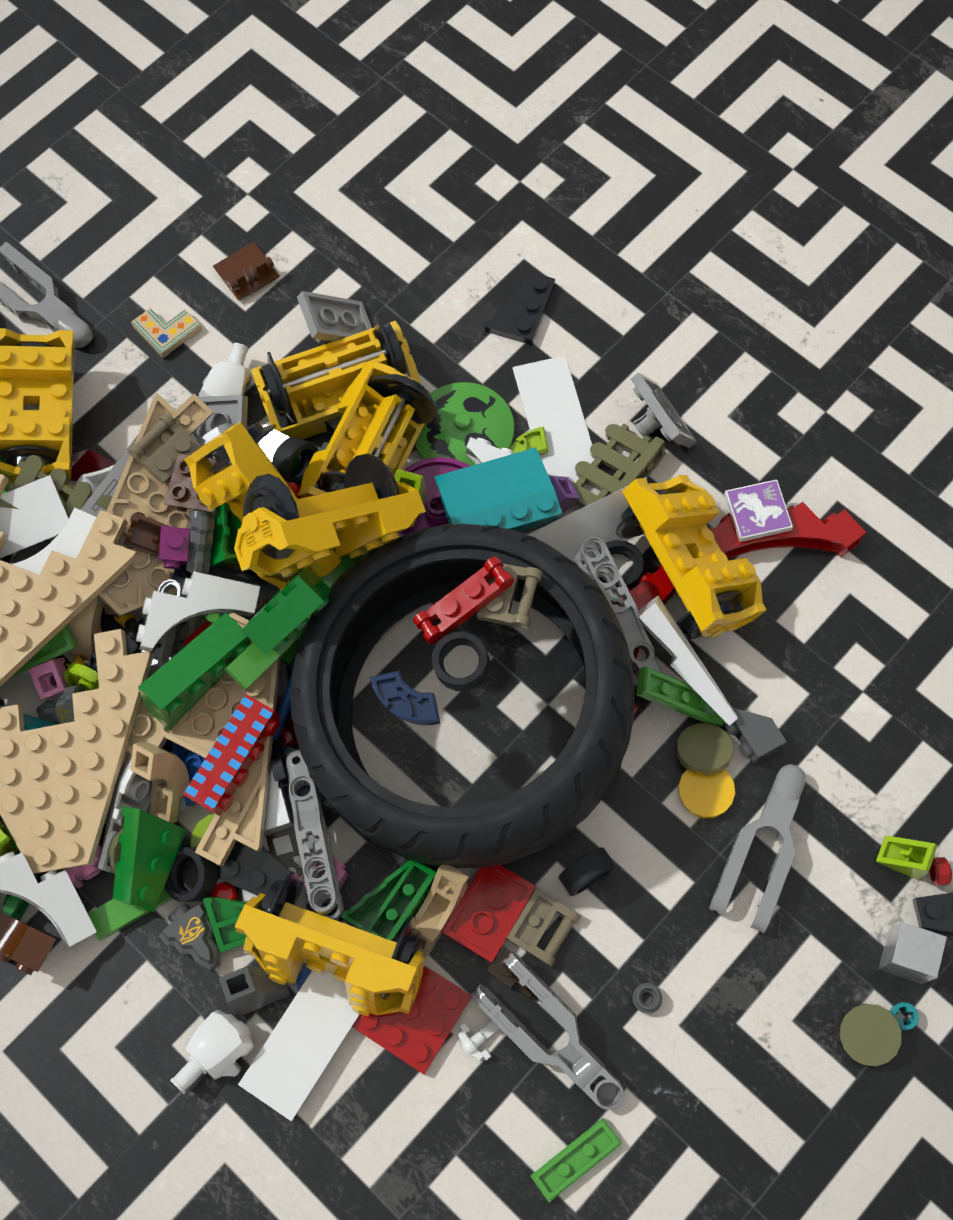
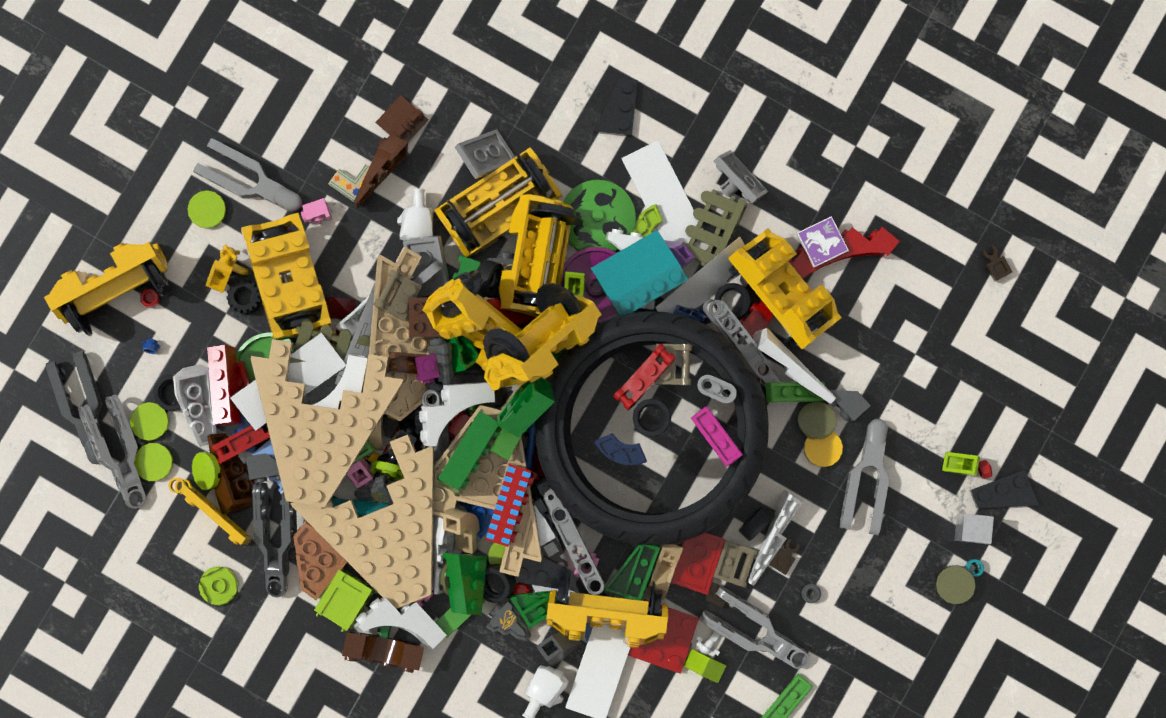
camera: 15 degrees left, 15 degrees up
(104, 349) = (316, 211): none -> bright pink brick
(208, 308) = (387, 157): none -> reddish brown wedge
(464, 1071) = (704, 665): none -> lime slope
(549, 706) = (716, 436): none -> dark pink tile
(565, 638) = (717, 389): none -> light grey plate
(615, 938) = (783, 560): none -> dark brown plate
(631, 869) = (774, 539): none -> white wedge

